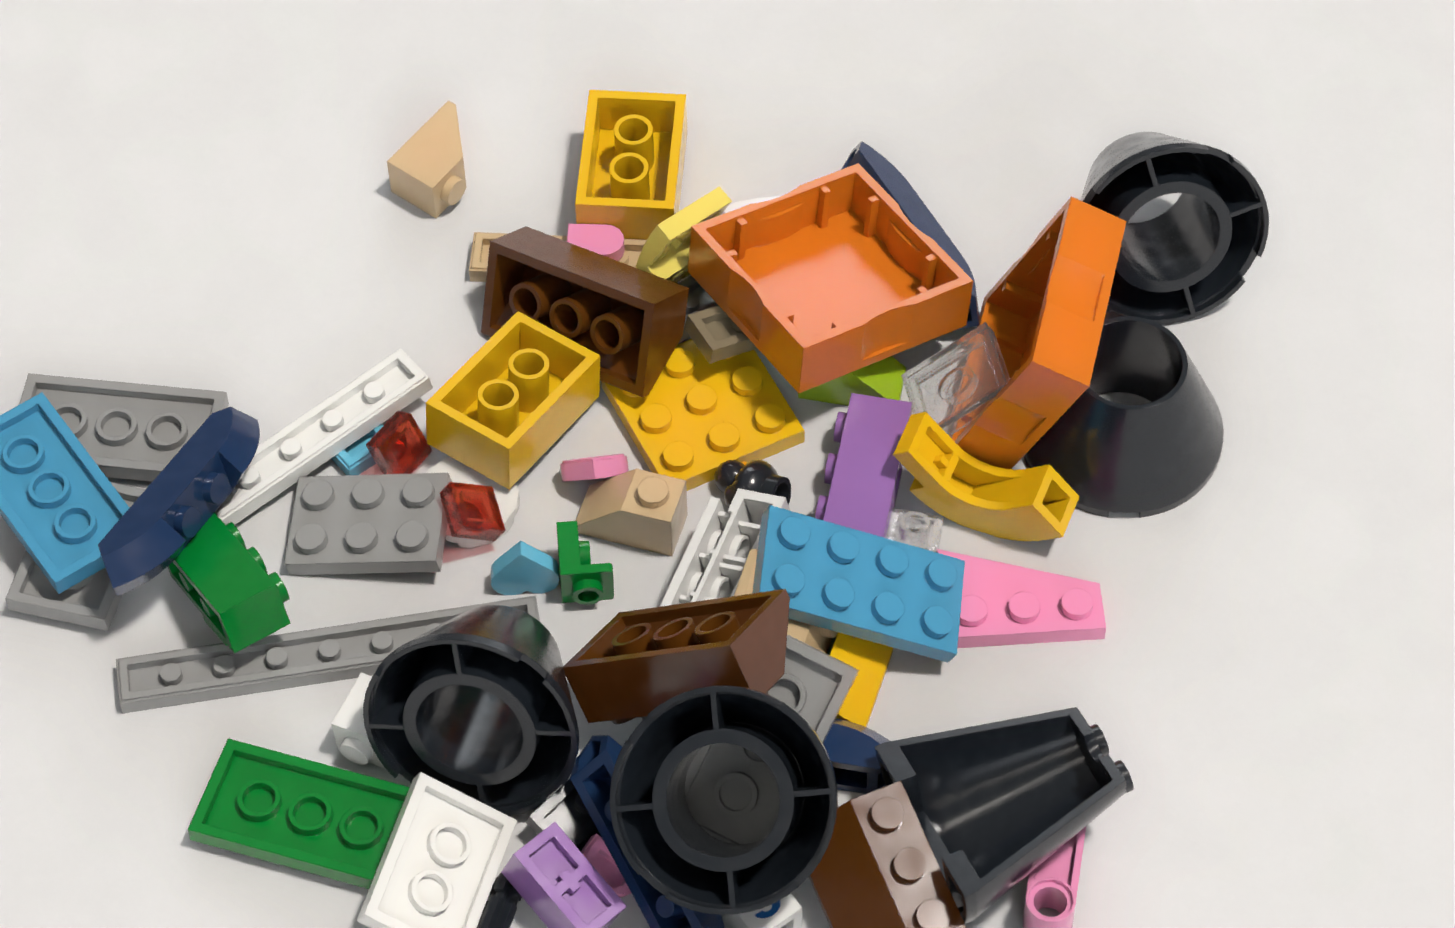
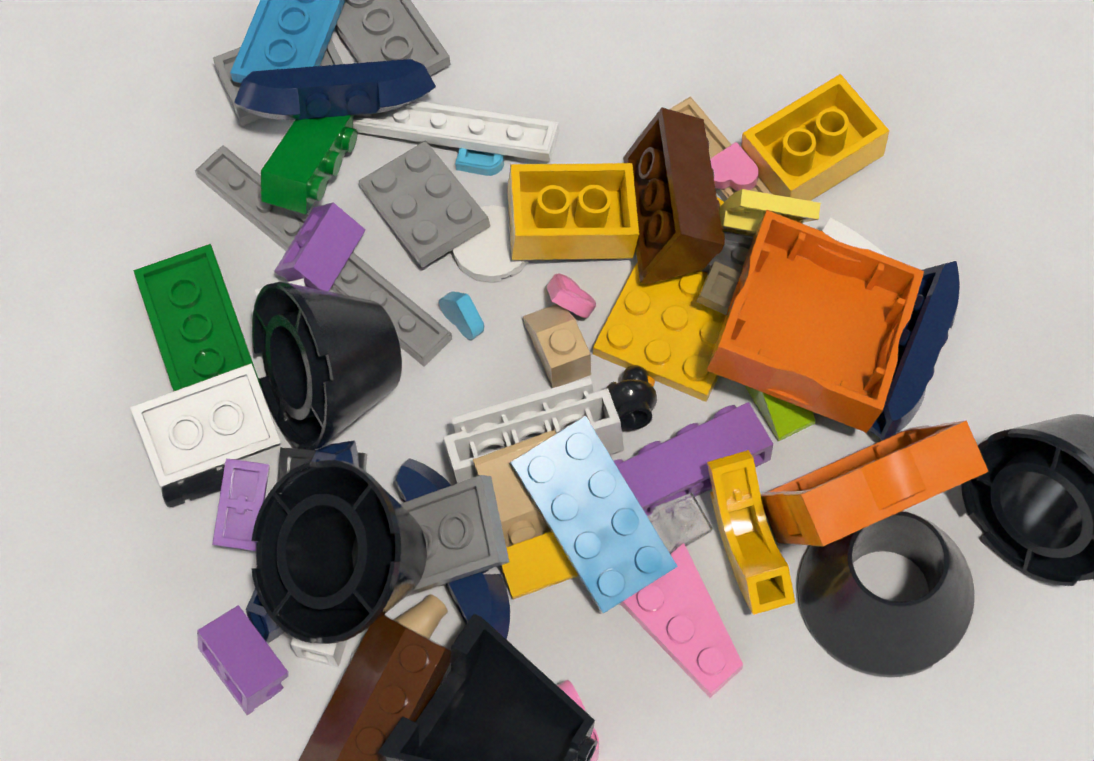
camera: 55 degrees right, 10 degrees up
(332, 640) = (321, 247): none -> medium lavender hinge
(399, 445) = (489, 176): clear red plate -> none
(431, 164) = (721, 34): tan slope -> none
(472, 511) = (470, 251): clear red plate -> none
(579, 578) = (488, 334): green bracket -> none
(678, 648) = (432, 450): reddish brown slope -> none
(958, 379) = (813, 458): clear tile -> none

